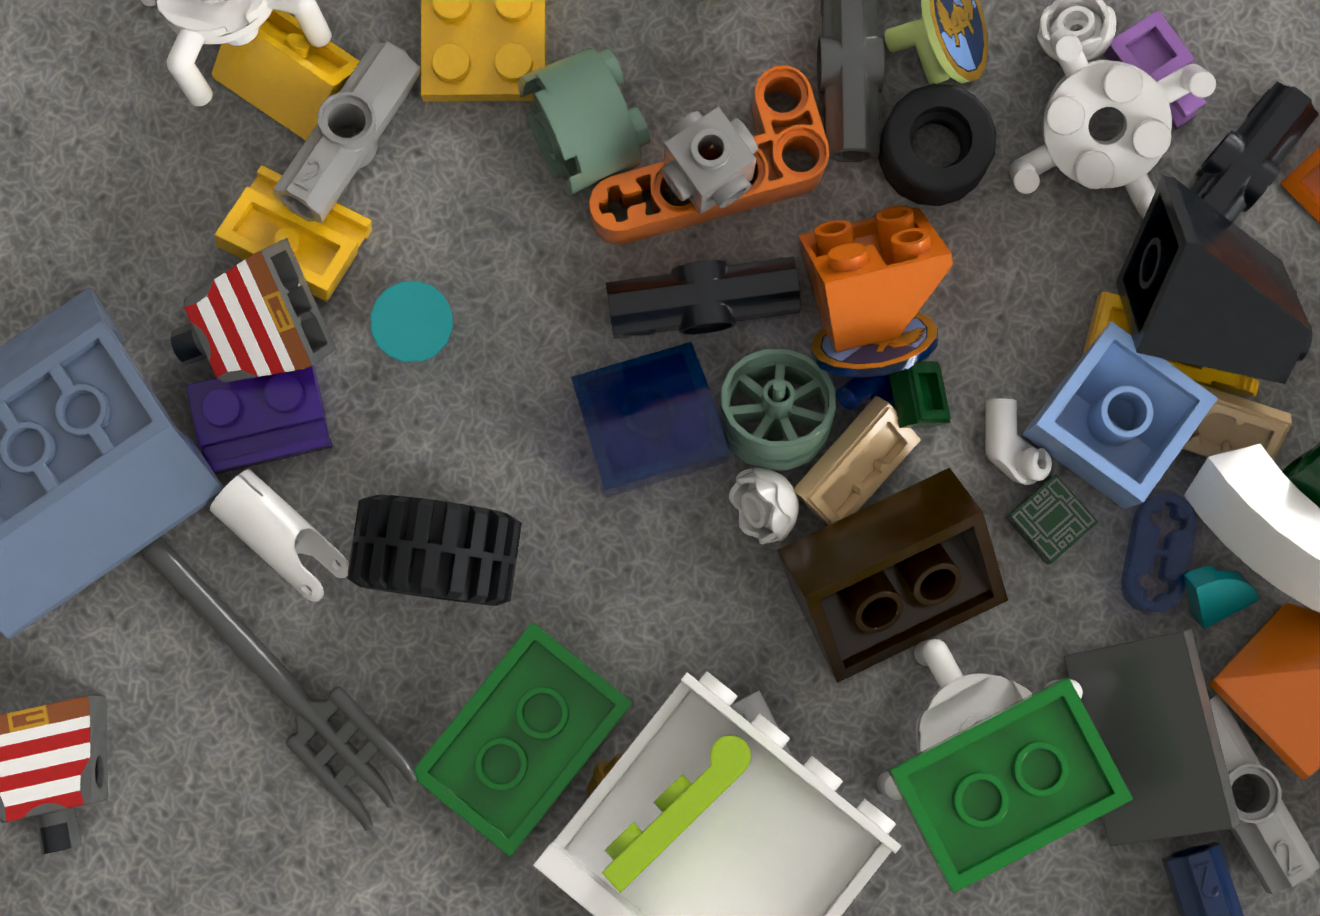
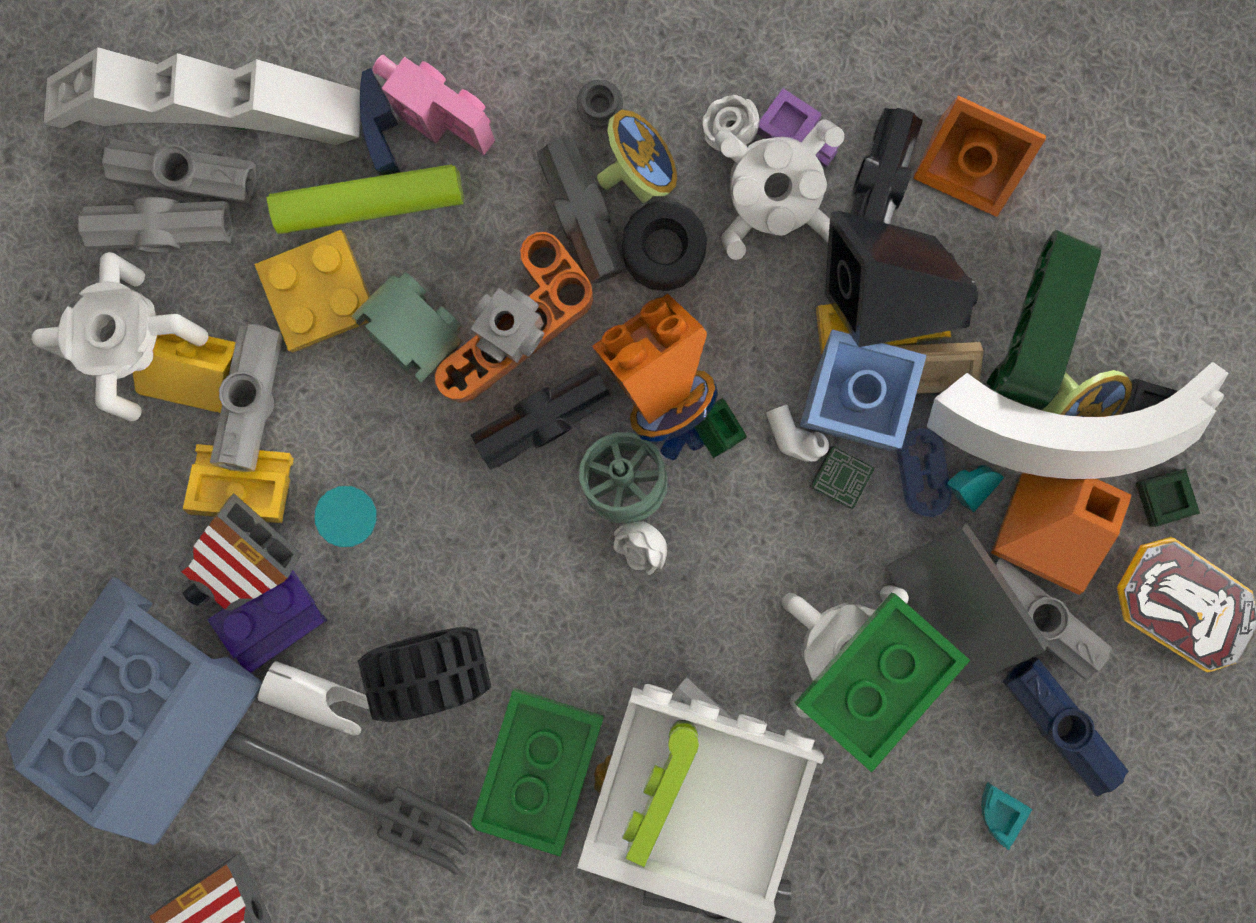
camera: 20 degrees left, 5 degrees up
(650, 419) = (536, 517): clear blue slope -> none
(856, 463) = (693, 494): tan plate -> none
(894, 573) = (747, 559): dark brown slope -> none

